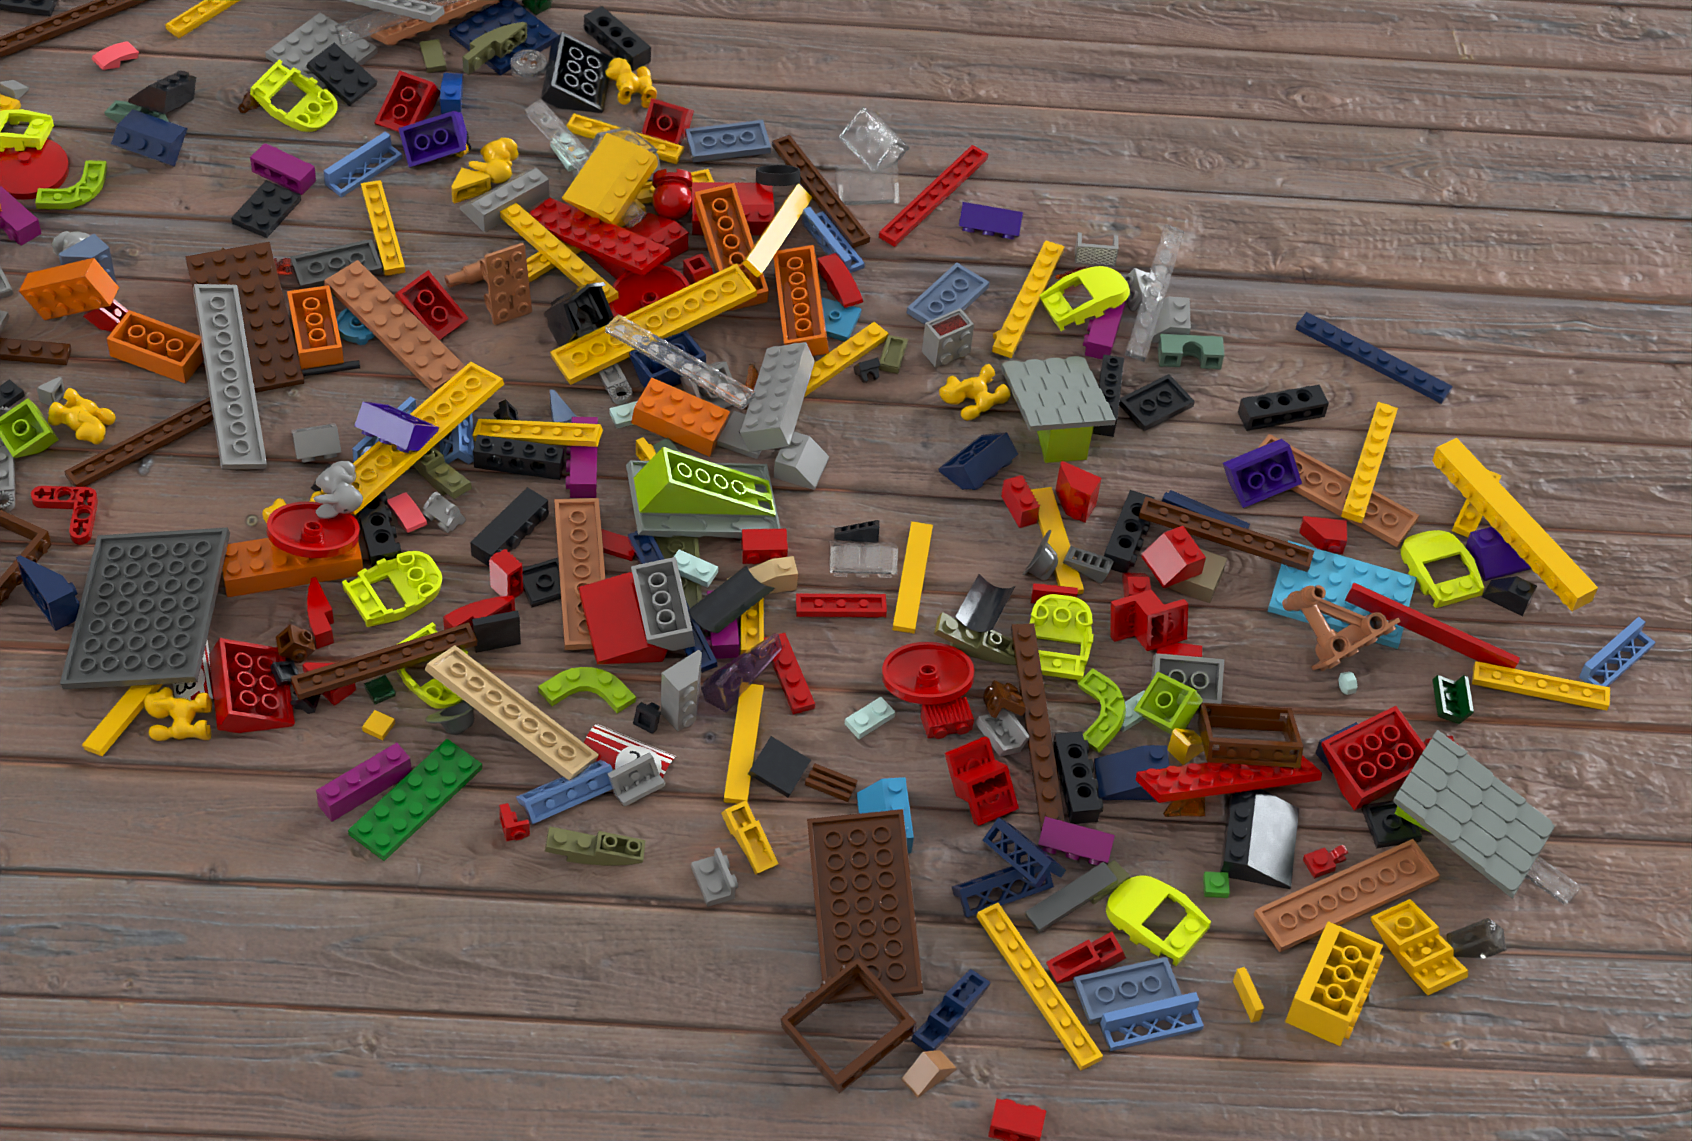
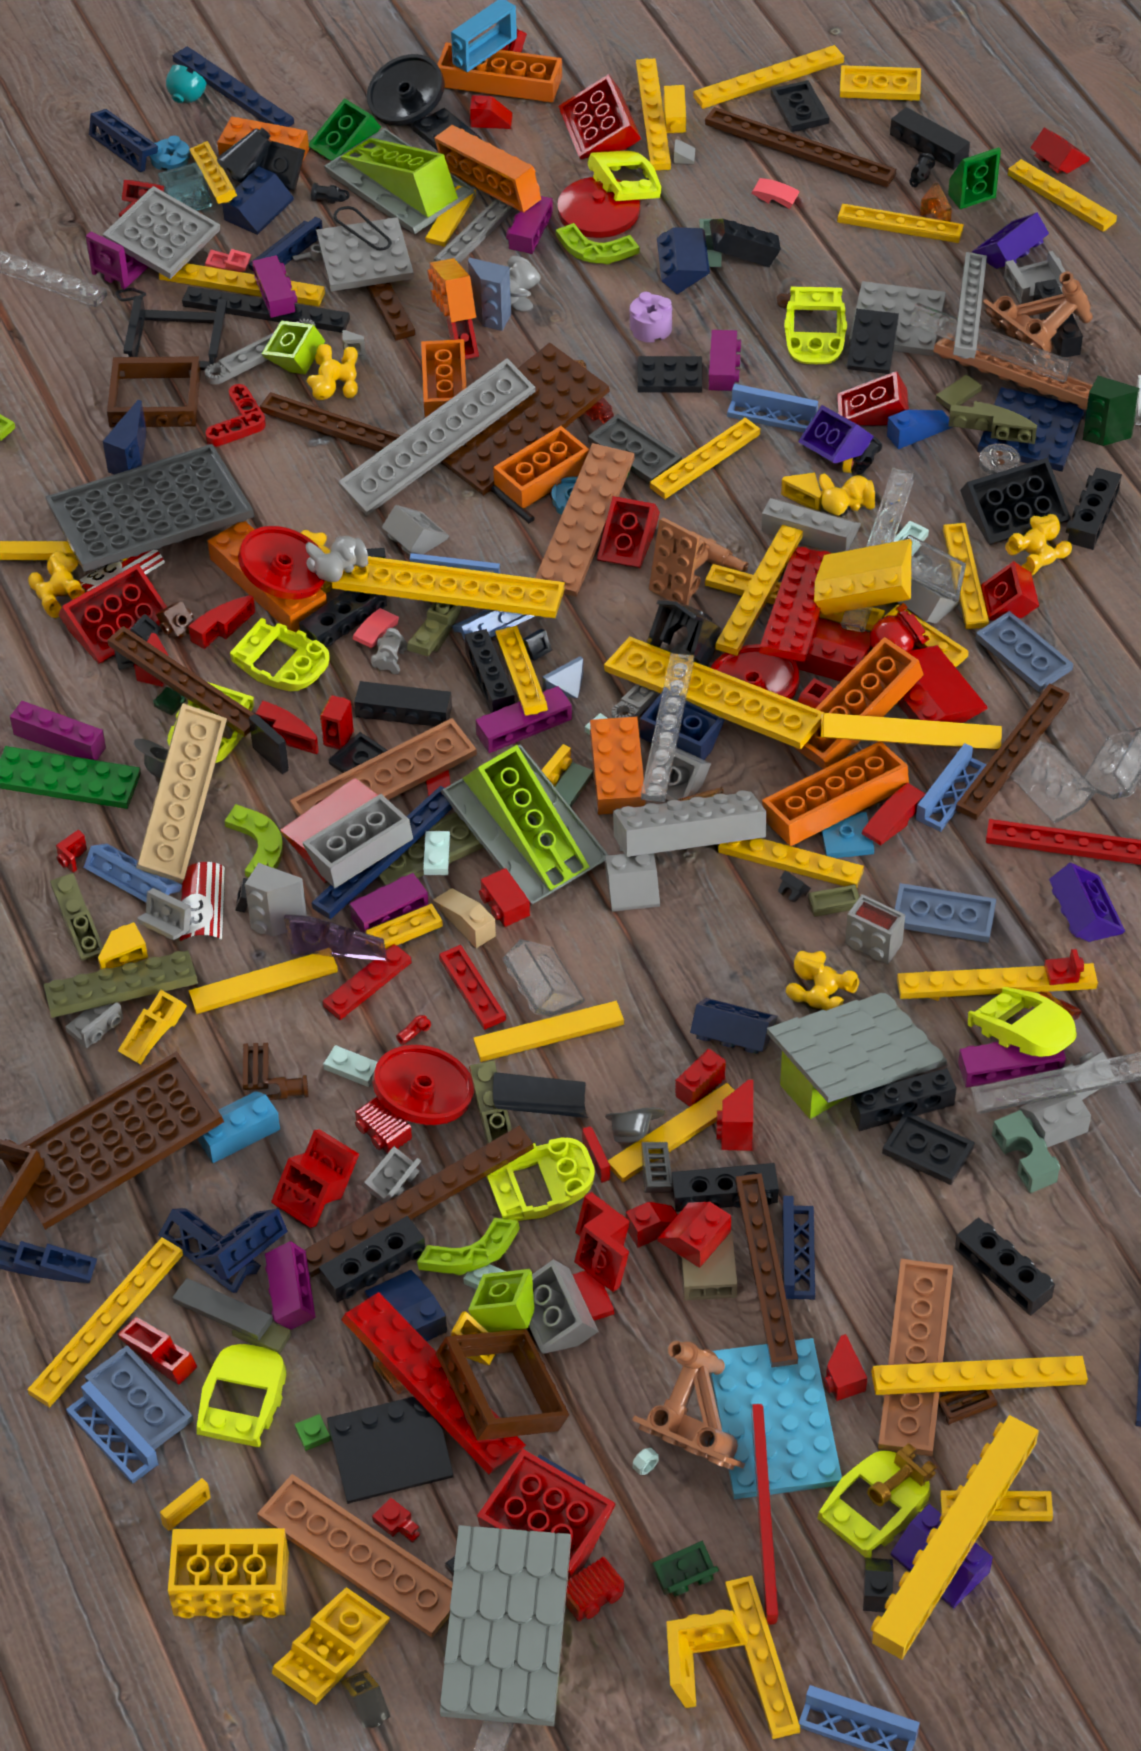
camera: 70 degrees right, 0 degrees up
(197, 189) = (650, 317): none -> lavender brick
(378, 725) = (129, 717): yellow tile -> none
(394, 426) = (442, 562): slope -> none
(647, 825) = (122, 947): none -> yellow slope
(688, 843) = (120, 983): none -> olive plate
(729, 601) = (408, 892): black sticker -> none
(778, 175) = (993, 713): black tyre -> none
(779, 766) = (247, 1017): black tile -> none
(858, 663) = (418, 1024): none -> red arm
(859, 532) = (572, 964): black slope -> none
(870, 767) = (288, 1087): none -> reddish brown piece
(1003, 696) = (427, 1159): reddish brown bracket -> none
(1049, 252) = (1064, 969): none -> red bracket
(1096, 254) = (1109, 1012): light grey panel -> none
(1262, 472) = (883, 1274): dark purple slope -> none
(1389, 476) = (949, 1411): none -> reddish brown tile
(1447, 554) = (880, 1492): none -> pearl gold bar
(1529, 725) = (697, 1635): none -> yellow bracket

